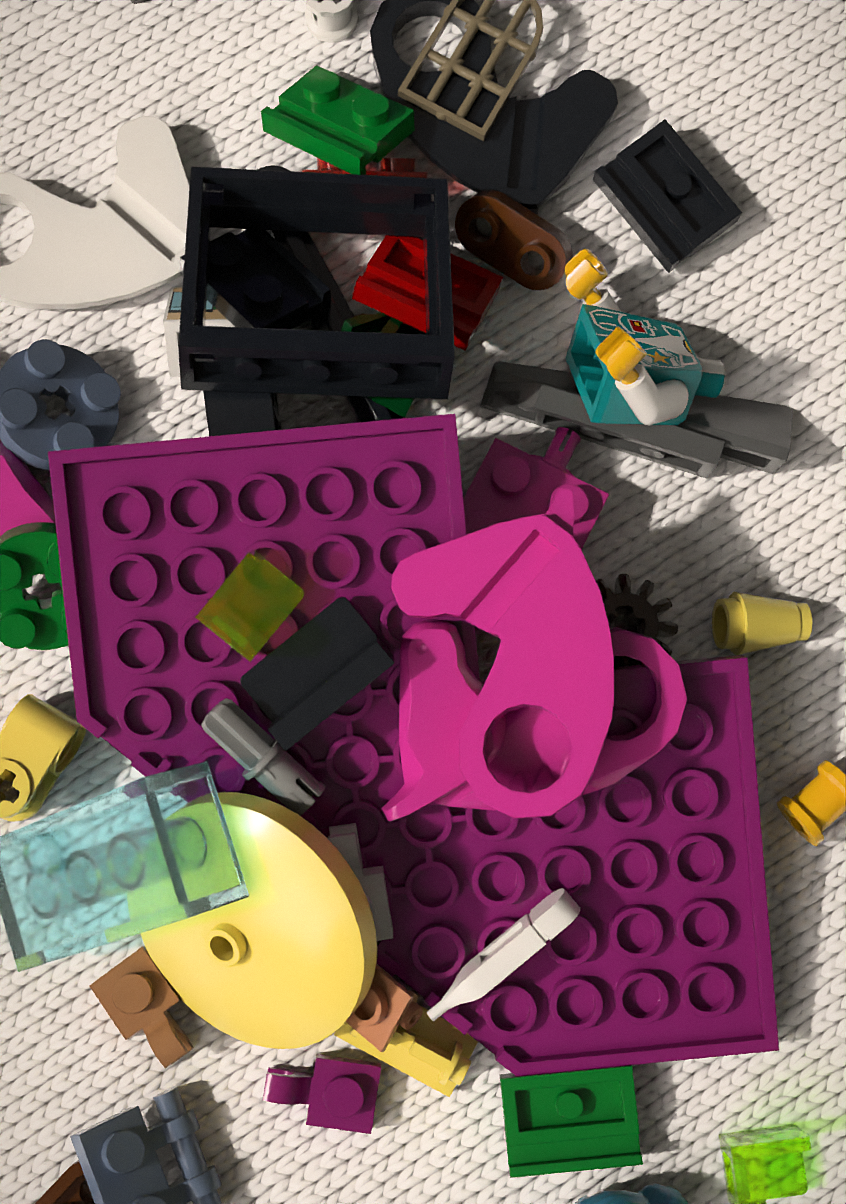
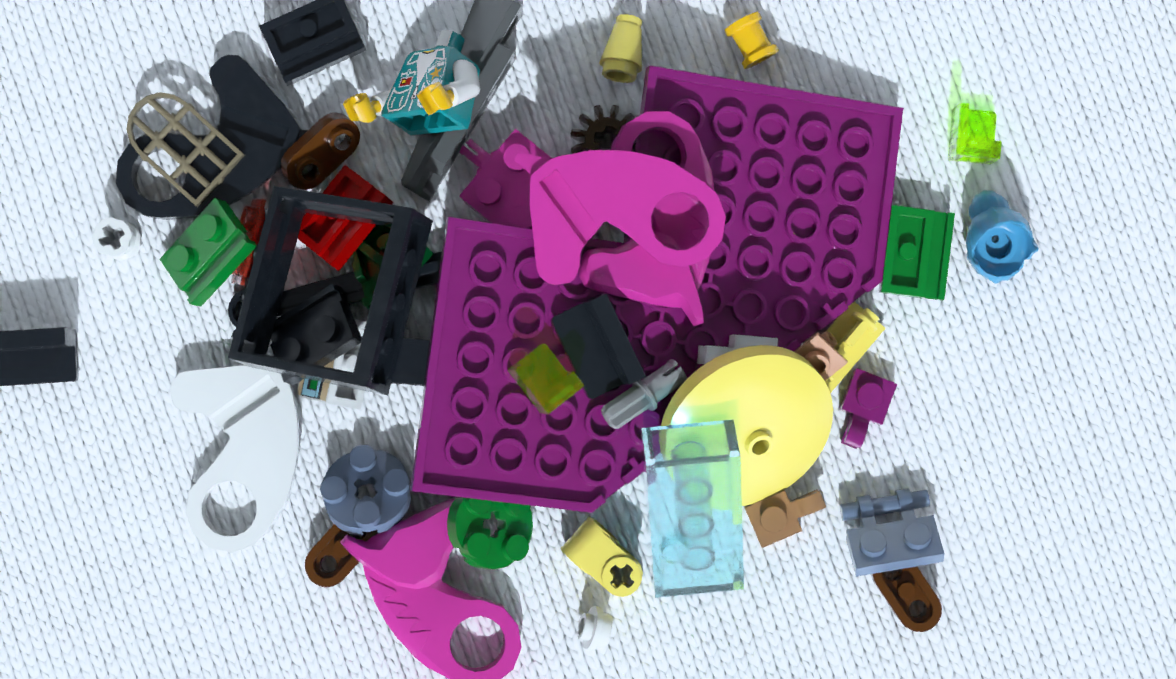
camera: 80 degrees left, 5 degrees up
(509, 951) = (802, 265): white piece -> none

